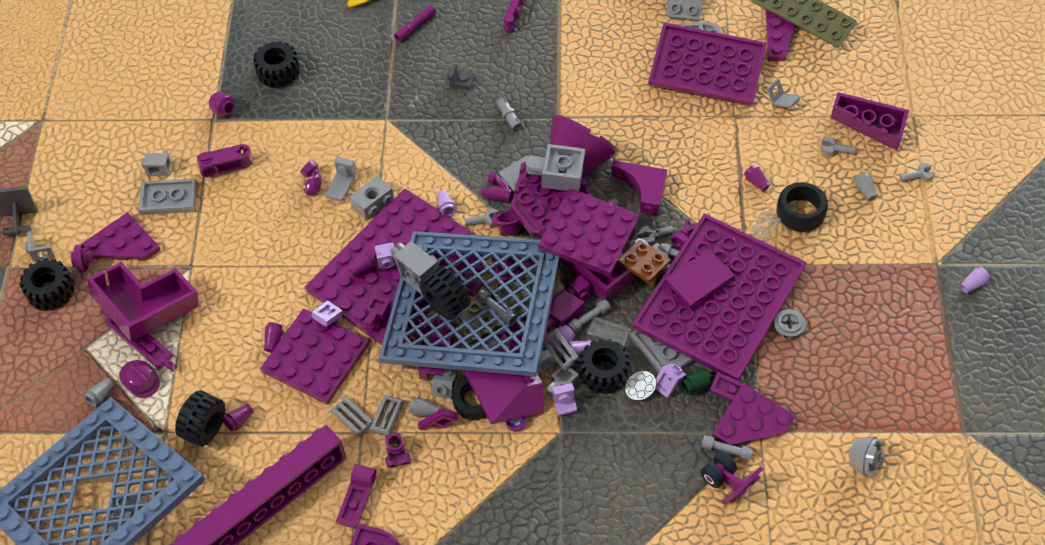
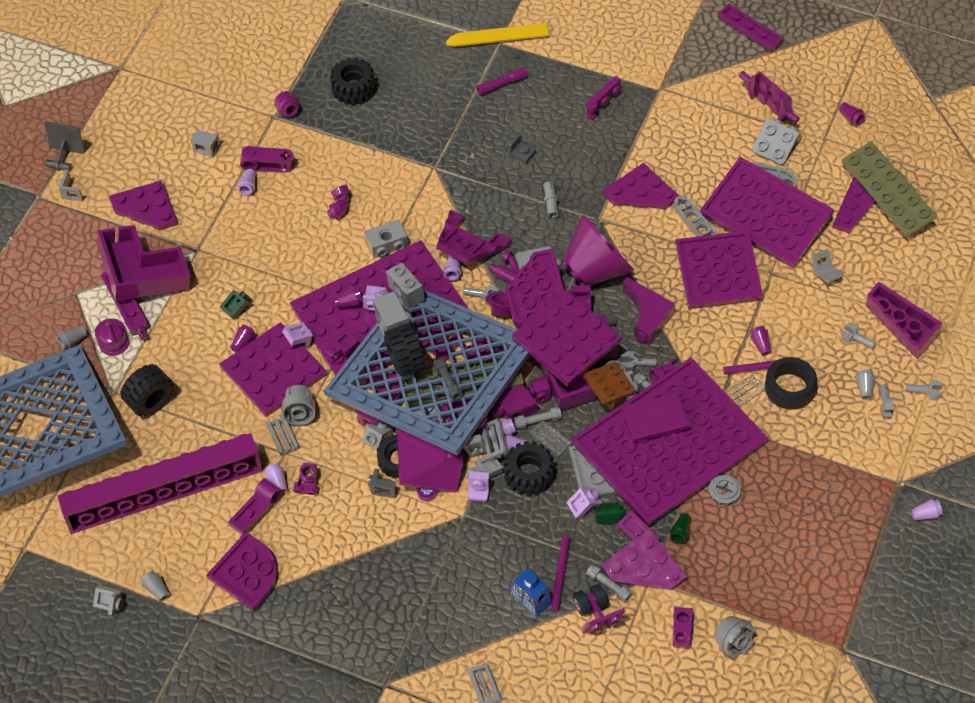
camera: 20 degrees right, 0 degrees up
(41, 273) = (62, 212): black tyre -> none
(81, 258) = (103, 209): magenta plate -> none
(168, 196) = (203, 177): light grey tile -> none
(214, 189) = (247, 182): none -> lavender cone
(235, 418) = (179, 401): magenta cone -> none
(251, 305) = (235, 303): none -> dark green bracket
(343, 179) = (367, 213): light grey bracket -> none
(357, 382) = (298, 405): none -> light grey piece
(363, 457) = (276, 475): none -> lavender cone
(388, 430) = (303, 457): light grey tile -> none
(411, 229) = (405, 285): none -> light grey brick
(422, 407) = (348, 449): light grey cone -> none
(441, 419) = (359, 464): magenta tile -> none
(449, 179) = (465, 245): none -> magenta wing
(472, 432) = (381, 487): none -> dark grey bracket
(559, 168) = (565, 267): light grey brick -> none
(585, 80) = (641, 189): none -> magenta plate
(640, 385) = (555, 498): white sticker -> none
(650, 93) = (690, 209): none -> light grey beam
(661, 482) = (529, 589): none -> blue torso
(677, 455) = (560, 574): none -> magenta bar
(689, 127) = (718, 269): none -> magenta plate
(757, 205) = (747, 367): none -> magenta bar
(768, 374) = (680, 530): none -> dark green cone
(814, 465) = (682, 626): none -> magenta leg
(894, 197) = (887, 402): none -> light grey bar

